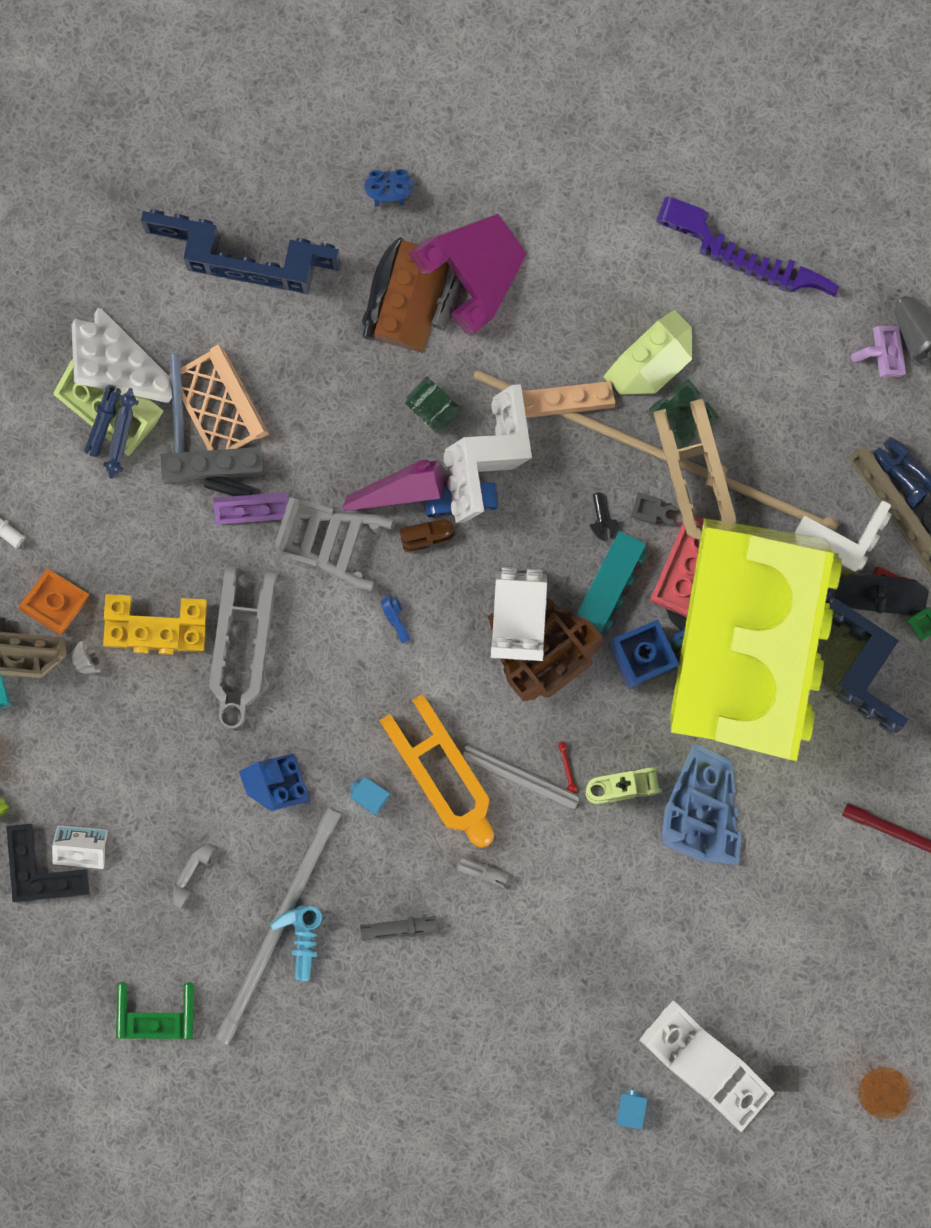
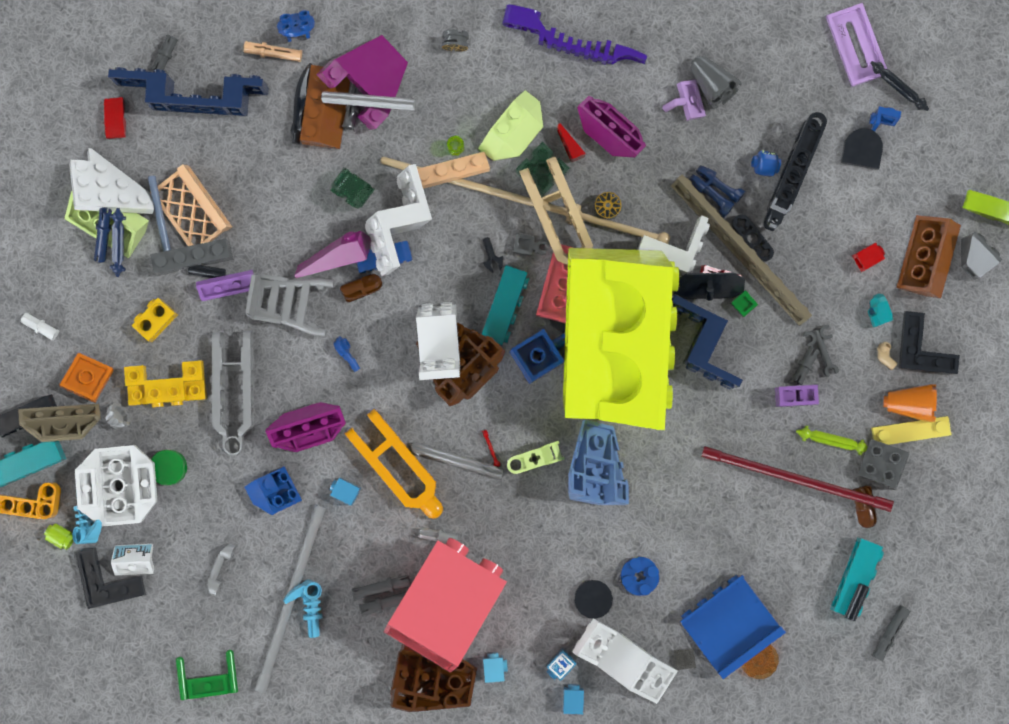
camera: 10 degrees left, 5 degrees up
(23, 801) = (85, 532): none -> medium azure piece
(49, 739) = (97, 489): none -> white piece
(137, 273) = (114, 118): none -> red slope
(142, 733) = (169, 467): none -> green head
(156, 544) = (158, 324): none -> yellow brick
(213, 199) = (164, 53): none -> dark grey pin
(331, 705) = (306, 427): none -> magenta wedge
(354, 216) = (272, 51): none -> light nougat pin
(405, 949) = (381, 604): none -> dark grey pin
(448, 1052) = (427, 686): none -> reddish brown wedge
(471, 295) = (368, 100): none -> light grey axle
(482, 955) = (446, 604): none -> coral brick
(533, 1053) = (494, 667): none -> medium azure brick
(574, 359) = (456, 152): none -> clear neon green bush
(592, 233) = (455, 40): none -> dark grey wheel
(620, 1062) = (560, 665): none -> brick
(675, 981) = (593, 599): none -> black tile
(726, 393) = (572, 148): none -> red slope
(726, 964) = (629, 579): none -> blue plate
(762, 473) = (607, 206): none -> wheel
(778, 373) = (610, 128): none -> magenta wedge
(852, 1042) = (731, 626): none -> blue panel

